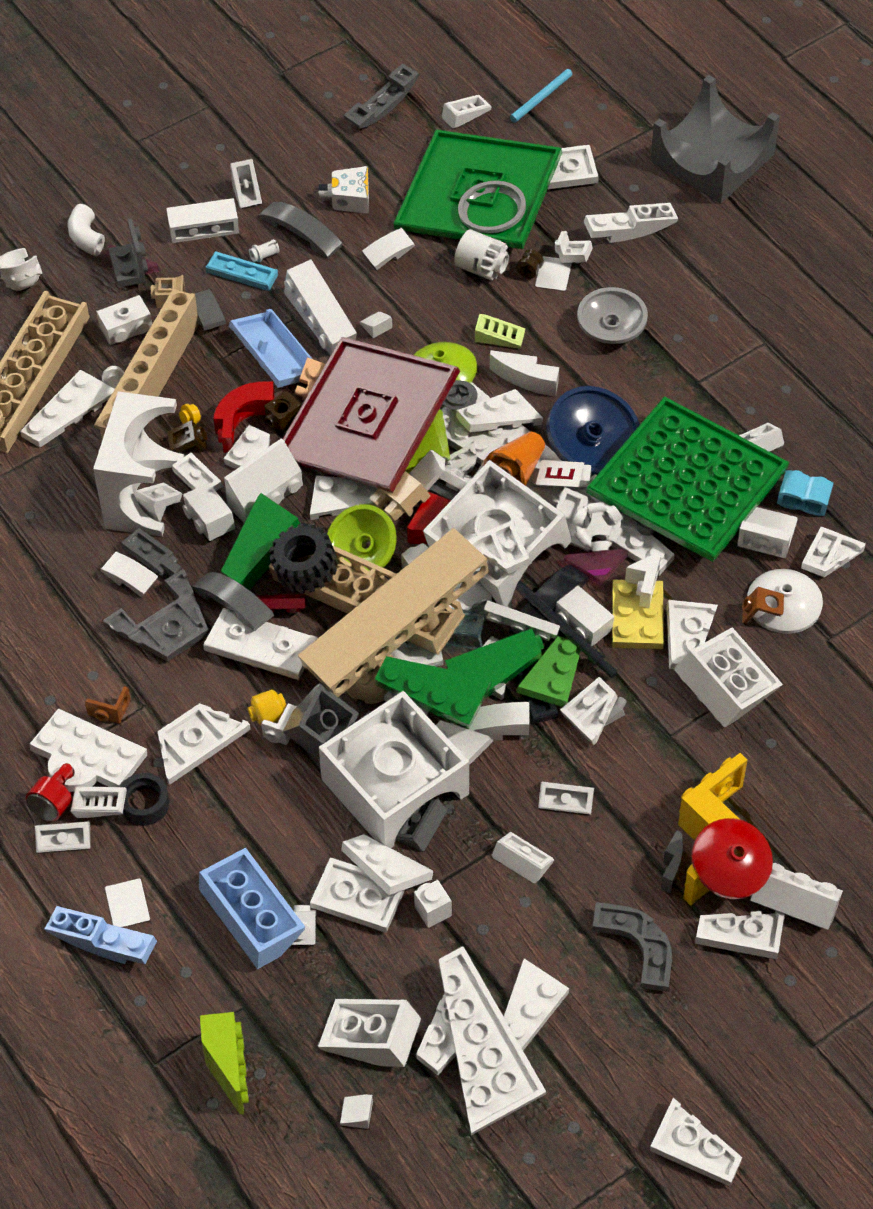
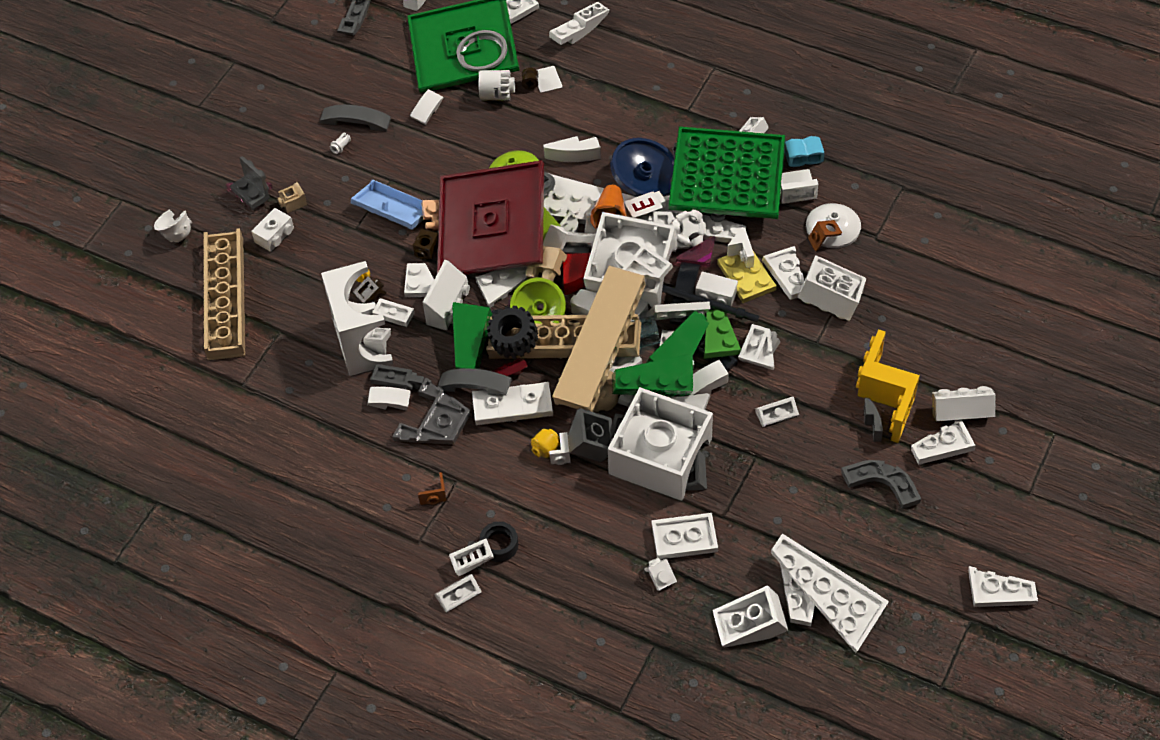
camera: 25 degrees left, 0 degrees up
(67, 407) = (270, 303): white wing -> none
(78, 758) = (437, 535): white plate -> none
(81, 232) = (200, 182): white cylinder -> none
(100, 938) = (530, 646): light blue slope -> none
(112, 376) = (290, 271): white plate -> none
(127, 903) = (531, 616): white sticker -> none
(151, 370) = (315, 257): tan tile -> none
(196, 738) = (508, 485): white wing -> none
(202, 220) = (283, 140): white brick -> none
(208, 310) = (326, 198): dark grey slope -> none
(208, 511) = (419, 332): white brick -> none
(225, 1055) = (670, 681): lime slope -> none
(238, 405) = (392, 252): red arch -> none
(242, 271) = (332, 163): medium azure tile -> none
(245, 183) = (297, 103): white slope -> none
(250, 907) = (621, 577): light blue slope -> none
(317, 305) = (405, 164): white wedge -> none
(348, 190) = (373, 79): white torso -> none
(357, 1111) = (774, 674): white slope -> none
(377, 324) = (450, 160): white slope -> none
(384, 865) = (690, 508): white wing -> none
(432, 903) = (737, 517): white brick -> none
(488, 324) = (527, 132): yellowish green slope -> none
(503, 409) = (573, 182): white wing -> none
(522, 857) = (773, 462): white slope -> none
(532, 1002) = (840, 547): white wing -> none
(572, 250) = (553, 58): white bracket -> none
(612, 315) = (608, 89): light grey dish -> none
(723, 870) = (913, 404): red dish -> none
(830, 552) = (843, 181): white wing -> none

